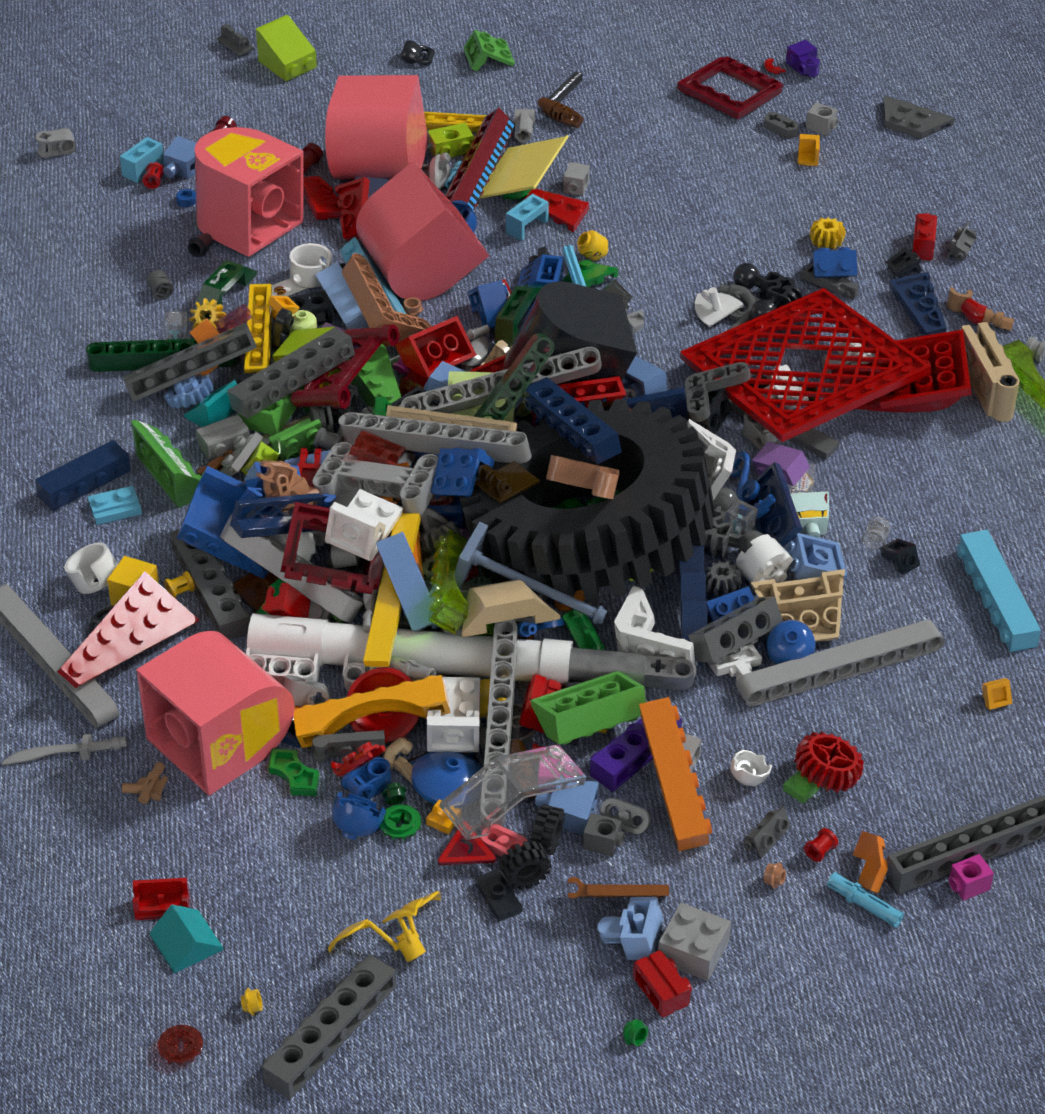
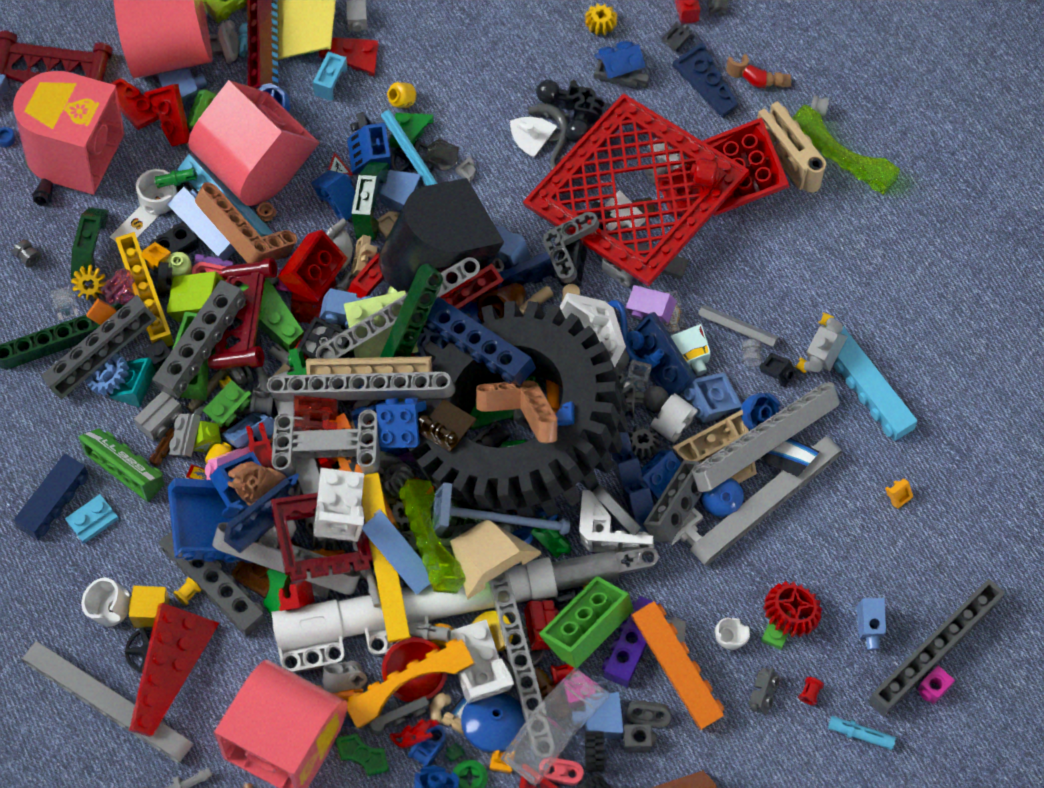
camera: 20 degrees left, 20 degrees up
(332, 251) = (176, 178): none -> green pin
(633, 490) = (565, 415): none -> blue tile
(662, 610) = (616, 509): none -> dark grey beam
(774, 875) = (785, 732): nougat plate -> none
(859, 598) = (765, 437): none -> light grey beam
(864, 581) = (758, 409): none -> blue cylinder
(870, 849) = (862, 705): orange tile -> none
(871, 507) = (738, 325): none -> light grey tile
(876, 624) = (791, 456): none -> sticker
(881, 355) = (705, 172): none -> red head
(916, 799) = (871, 612): none -> medium blue torso
(955, 537) = (824, 346): none -> light grey torso

